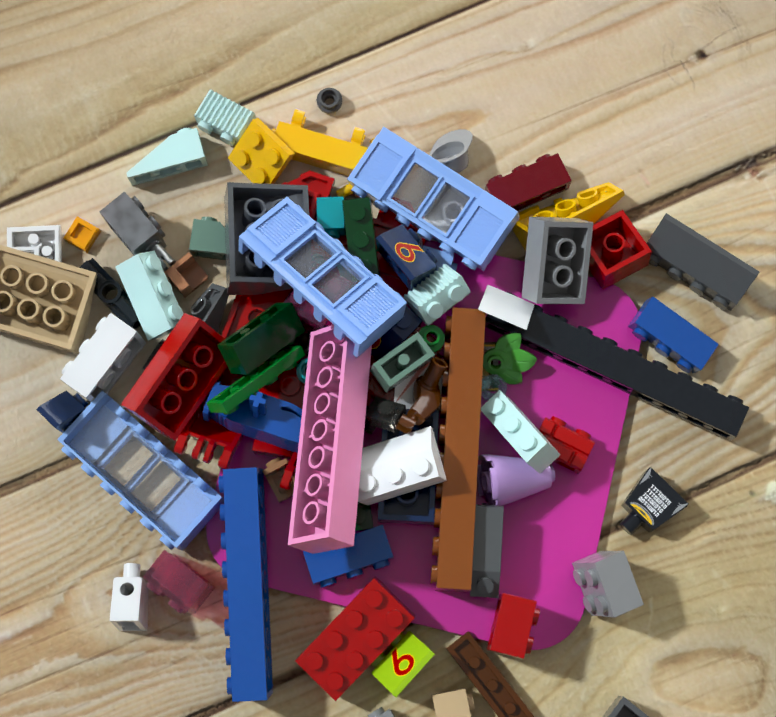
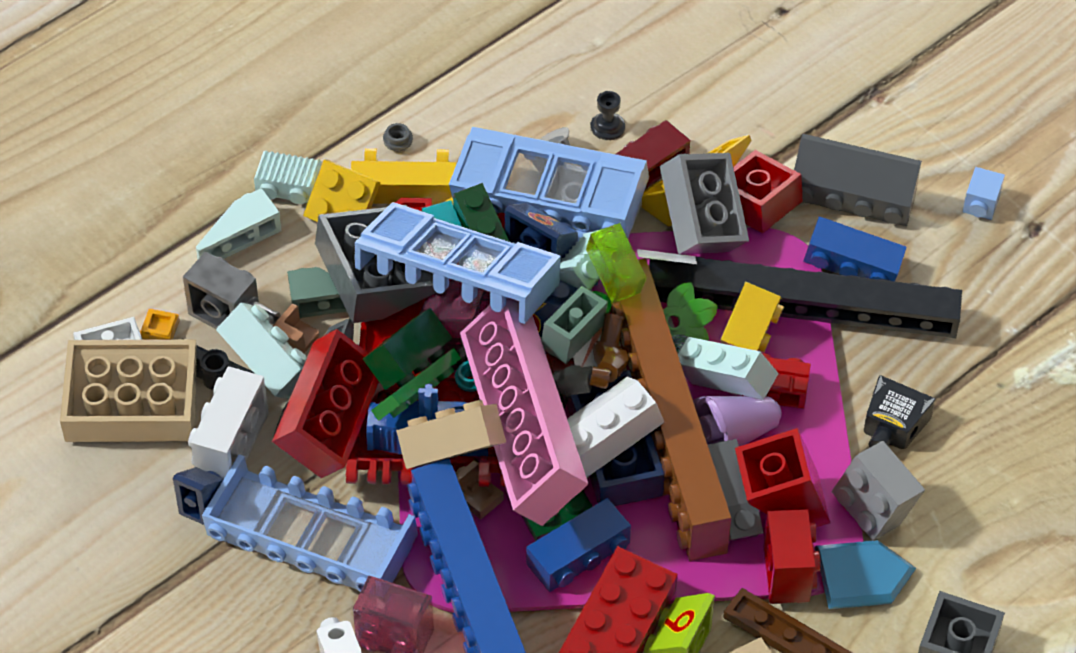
camera: 20 degrees left, 25 degrees down
(262, 451) = (450, 434): none -> tan brick
(453, 319) = (616, 263): none -> clear neon green brick
(511, 132) = (608, 124): none -> black piece
(528, 558) = (782, 476): none -> red slope
(559, 385) = (752, 318): none -> yellow brick
(570, 645) = (861, 574): none -> dark azure tile

